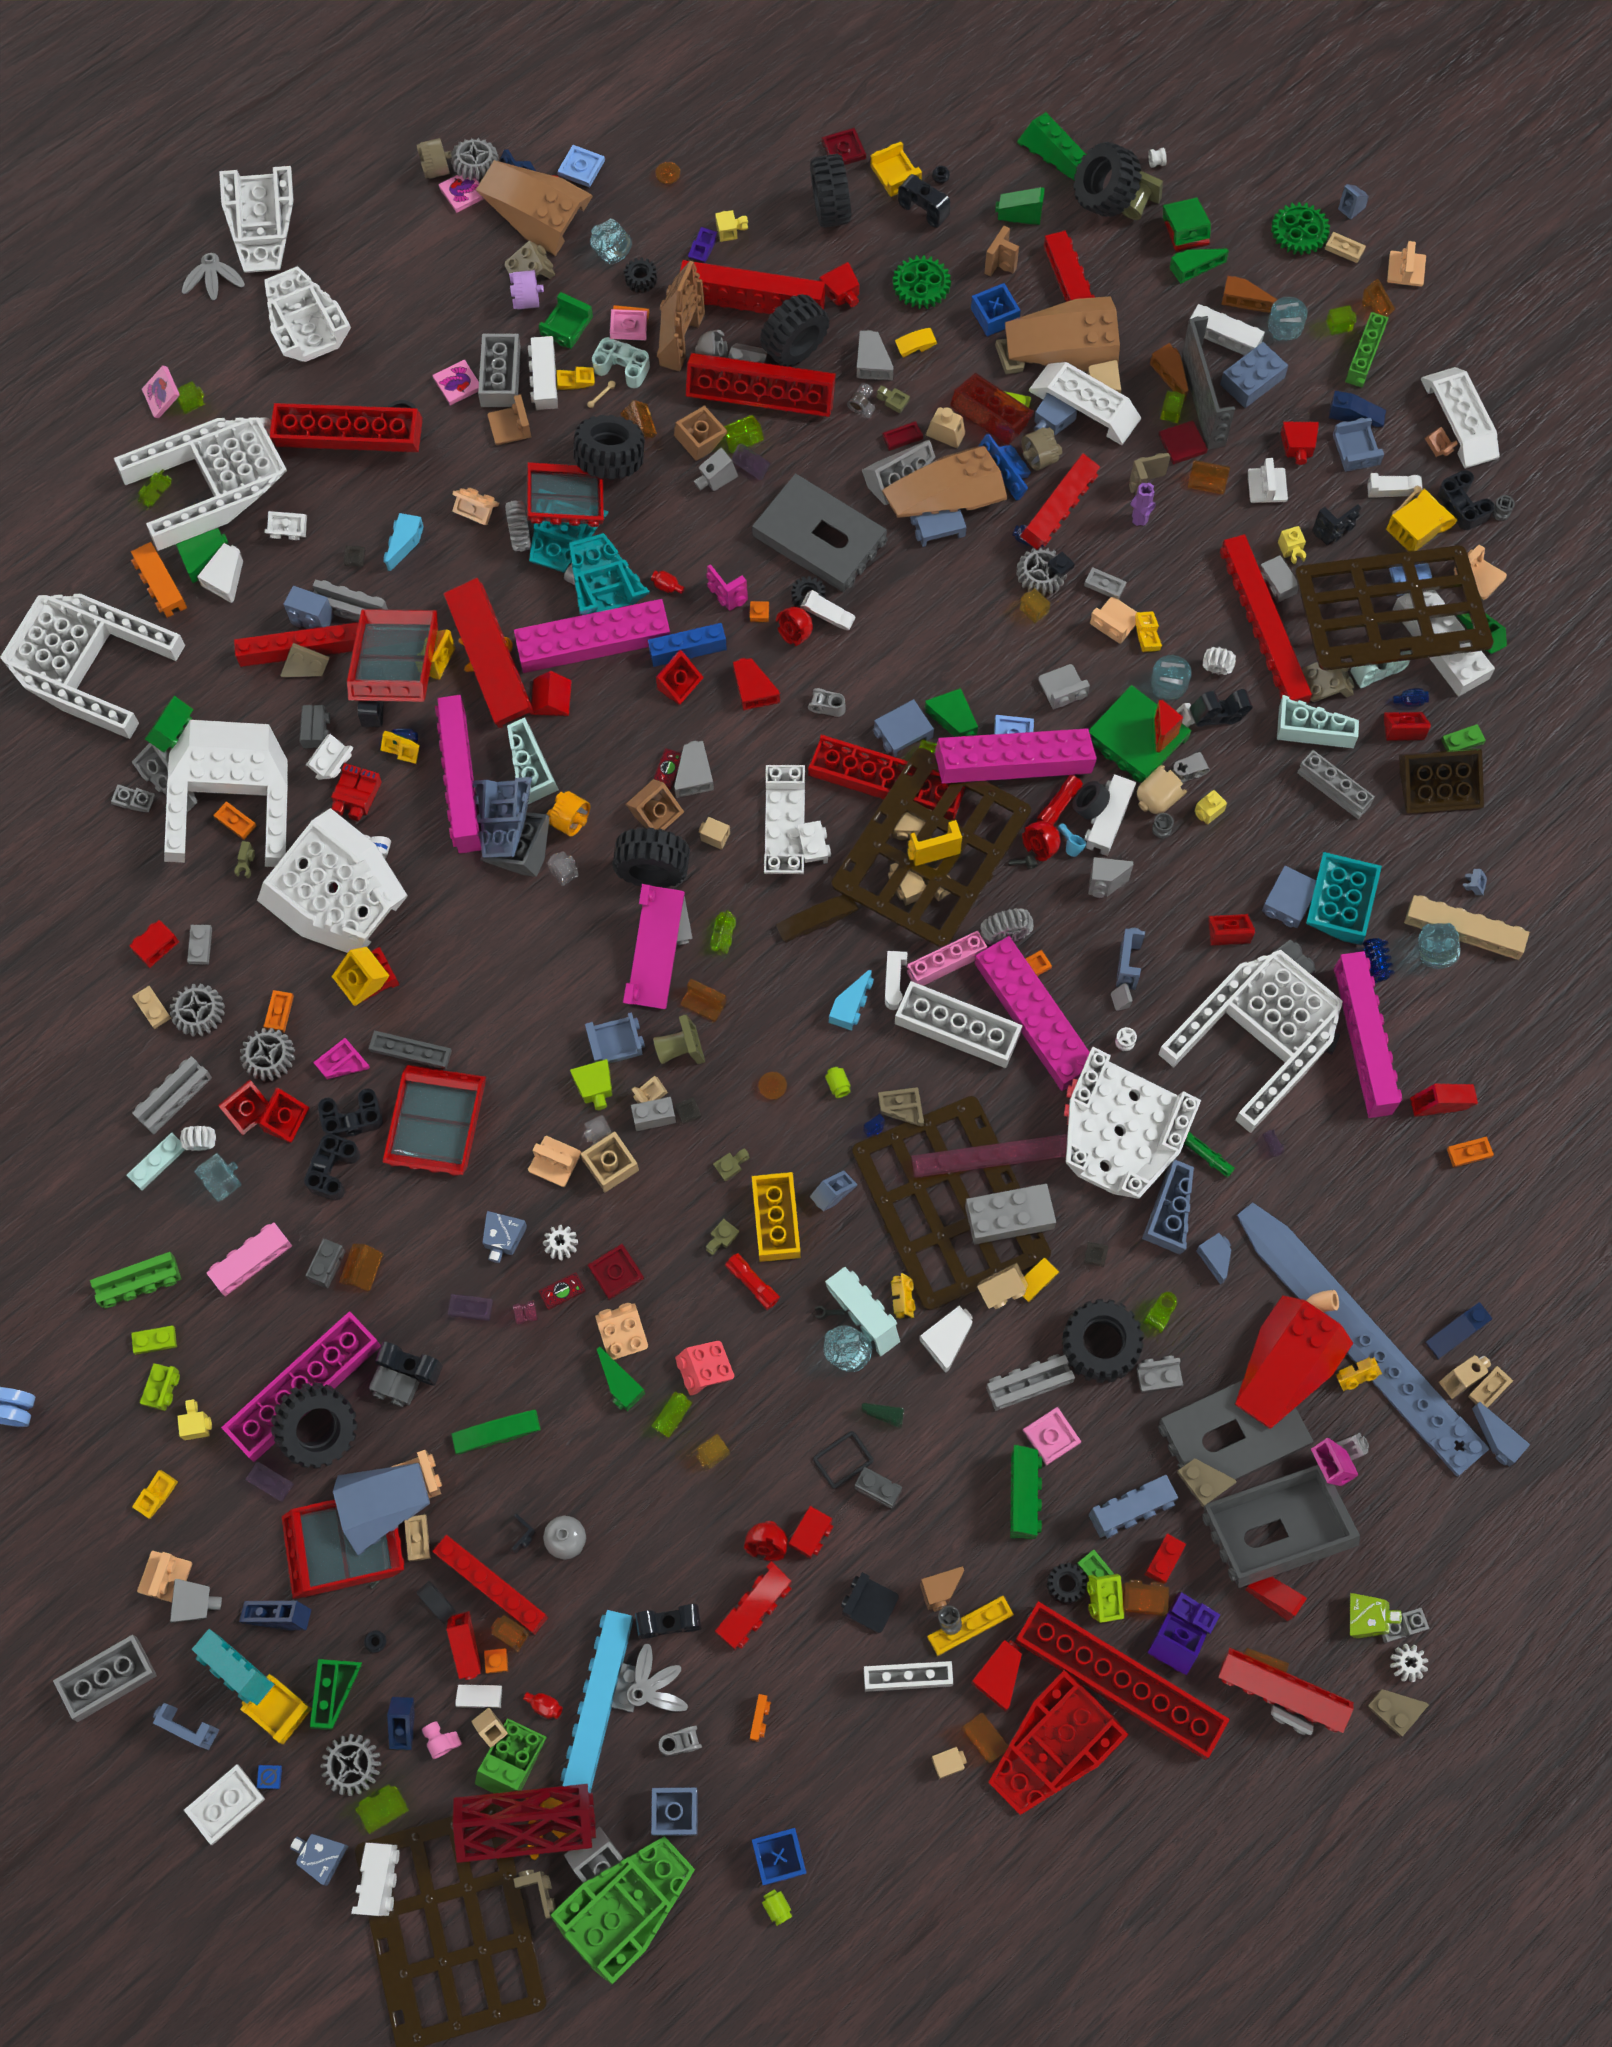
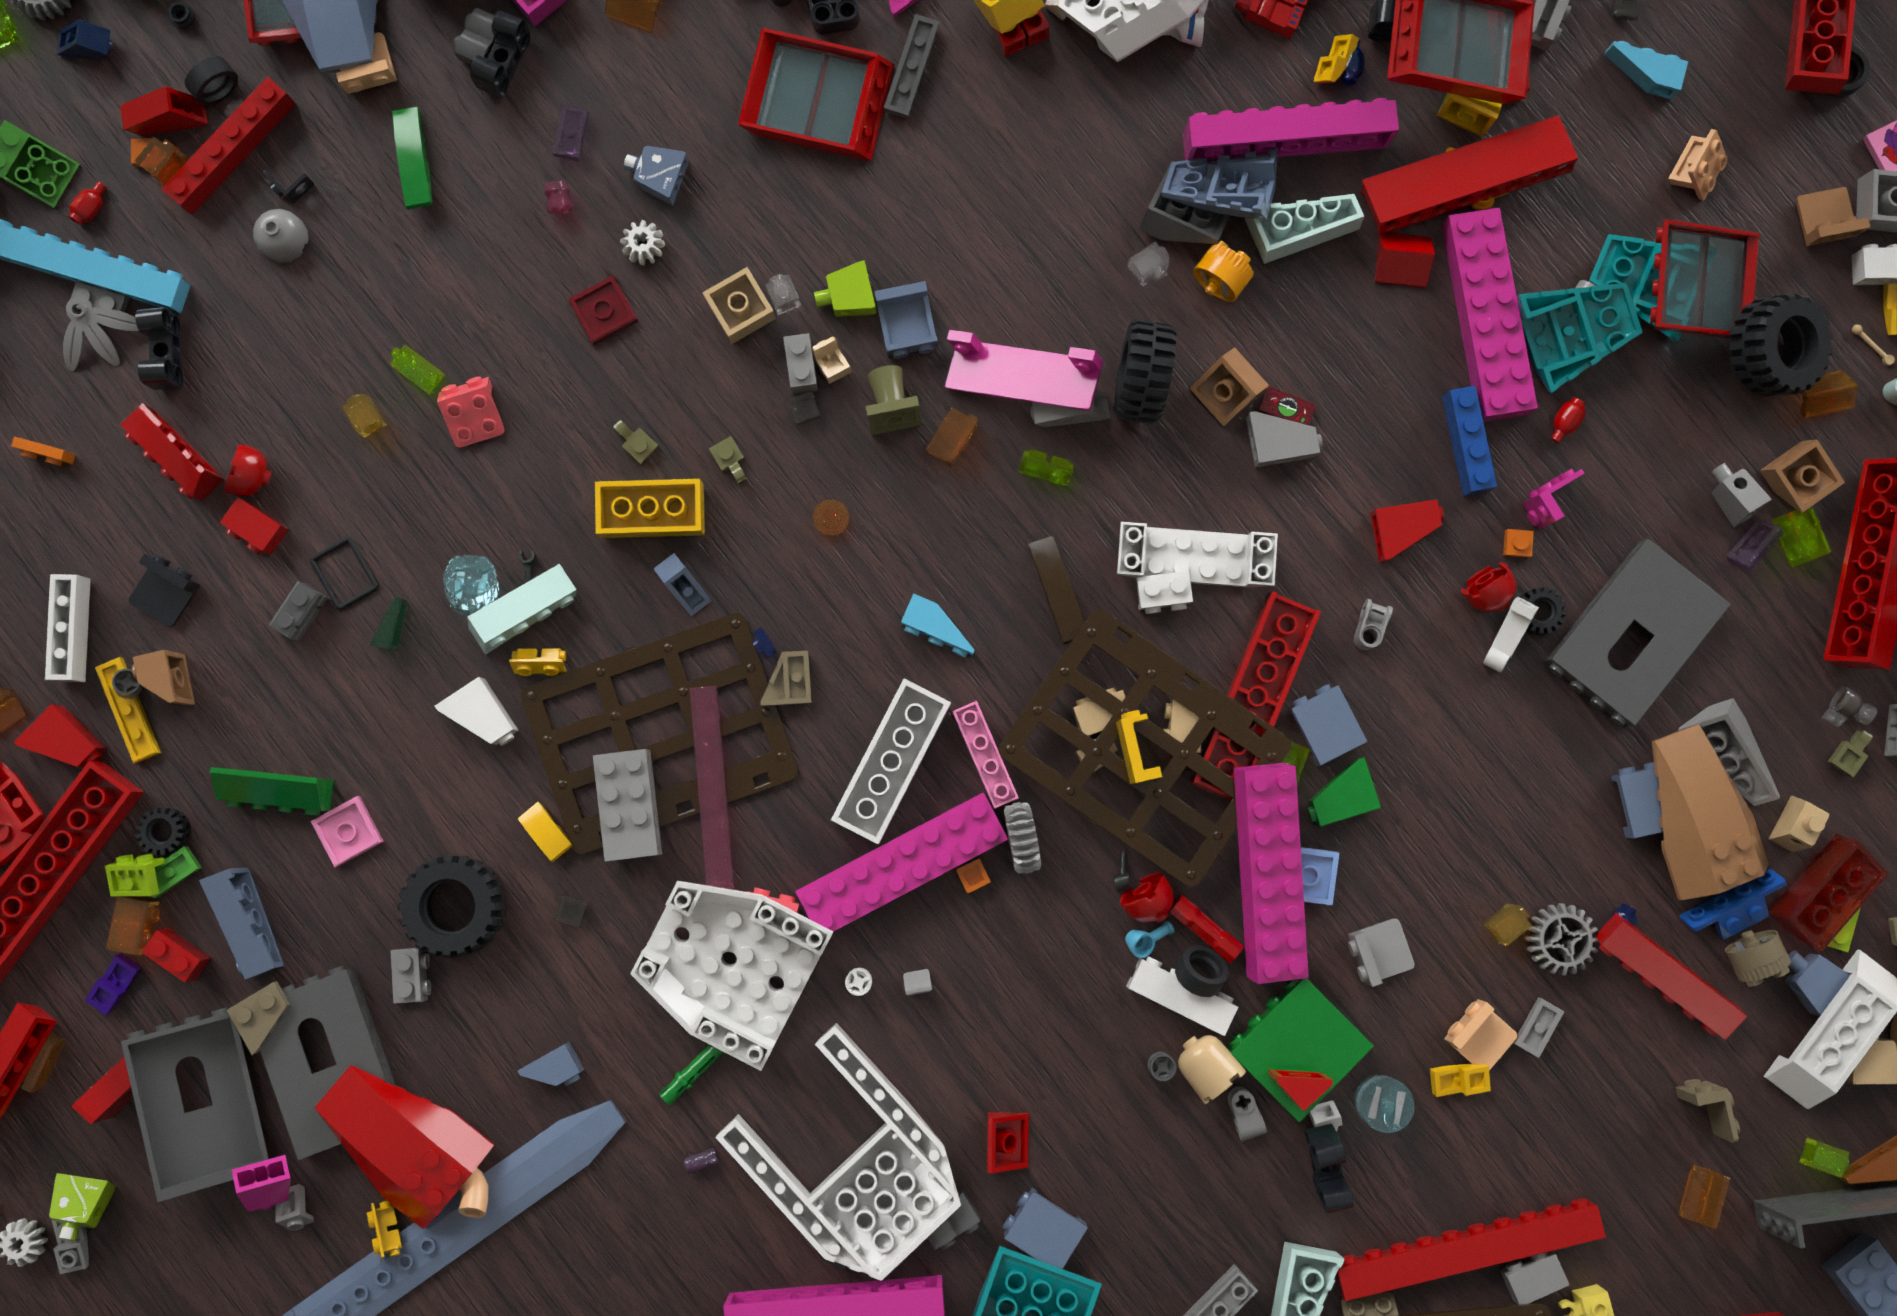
camera: 90 degrees right, 15 degrees up
(417, 1538) = (292, 65): tan plate -> none
(439, 1743) = (55, 85): bright pink piece -> none
(479, 1696) = (104, 131): white slope -> none
(489, 1727) = (62, 139): tan brick -> none
(518, 526) = (1645, 219): light grey gear -> none
(554, 1161) = (751, 239): light nougat bracket -> none
(562, 1291) = (583, 244): tile -> none
(621, 1331) = (526, 311): light nougat bracket -> none
(622, 1386) = (458, 307): green slope -> none
(678, 678) = (1419, 427): red slope -> none
(681, 1741) = (26, 362): light grey piece -> none
(714, 833) = (1187, 462): tan brick -> none
(762, 1292) = (558, 487): red axle -> none
(838, 1082) = (826, 600): lime brick -> none
(893, 996) = (940, 680): white leg -> none
(902, 436) = (1790, 762): dark red tile -> none
(1003, 1286) = (529, 785): tan brick -> none
(1029, 1382) = (413, 810): light grey brick -> none
(1061, 564) = (1566, 966): black plate -> none
(1108, 876) = (1087, 979): light grey slope -> none
(1131, 939) = (967, 991): sand blue panel -> none
(1143, 504) = (1658, 1094): medium lavender piece -> none
(1159, 1314) = (483, 984): clear neon green piece -> none
(1169, 1216) = (618, 1014): sand blue wedge -> none
(1177, 1643) = (75, 959): dark purple slope -> none
(1183, 442) = (1765, 1166): dark red tile -> none
(1210, 807) = (1184, 1135): light yellow brick -> none
(1219, 661) = (1406, 1175): white gear -> none
(1267, 483) = (1690, 1281): white bracket -> none

